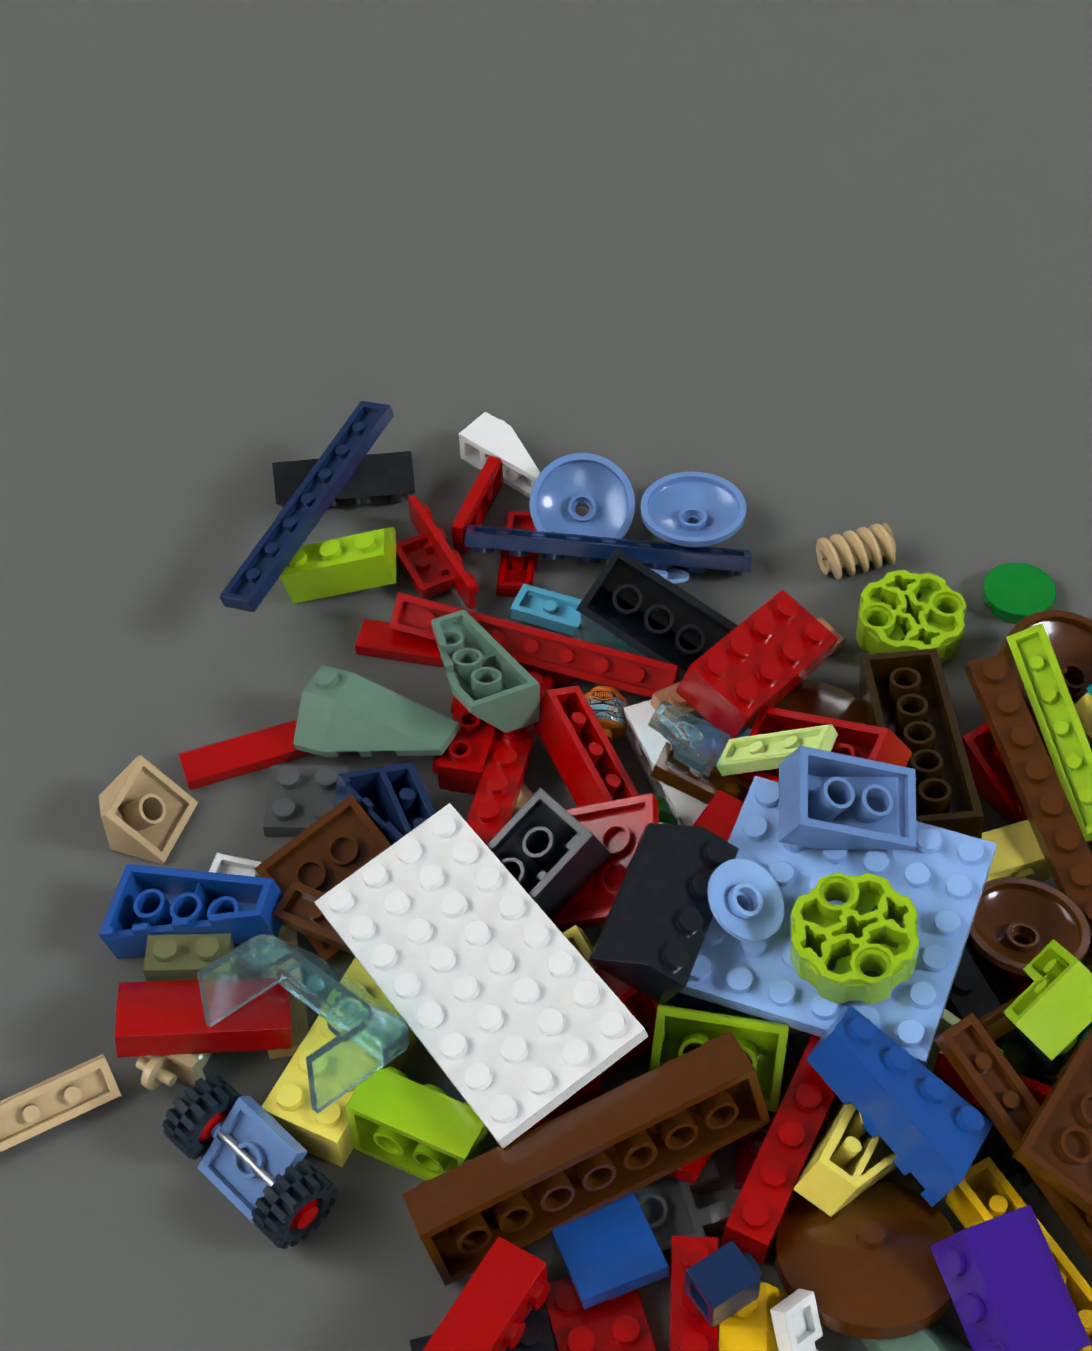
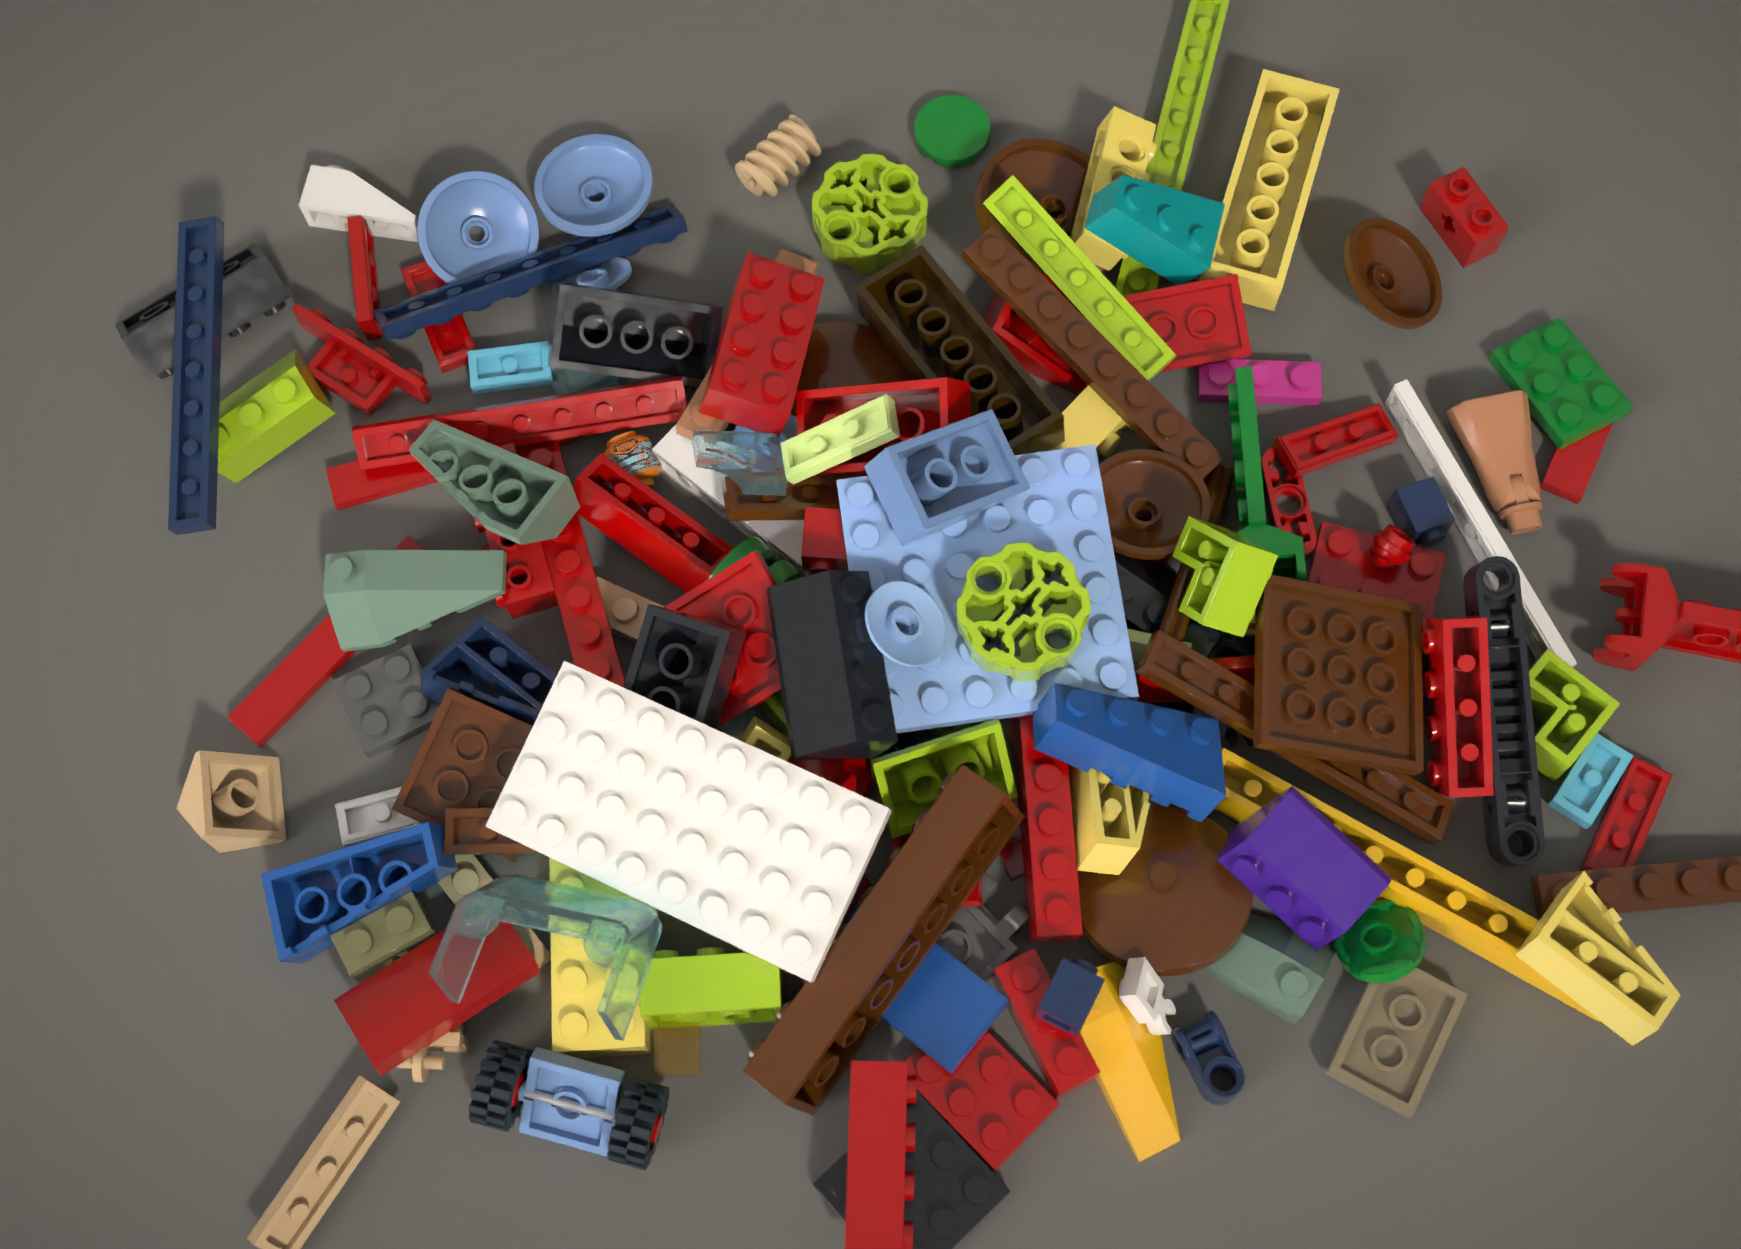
camera: 30 degrees left, 20 degrees up
(364, 1175) = (677, 1051): none -> clear yellow tile

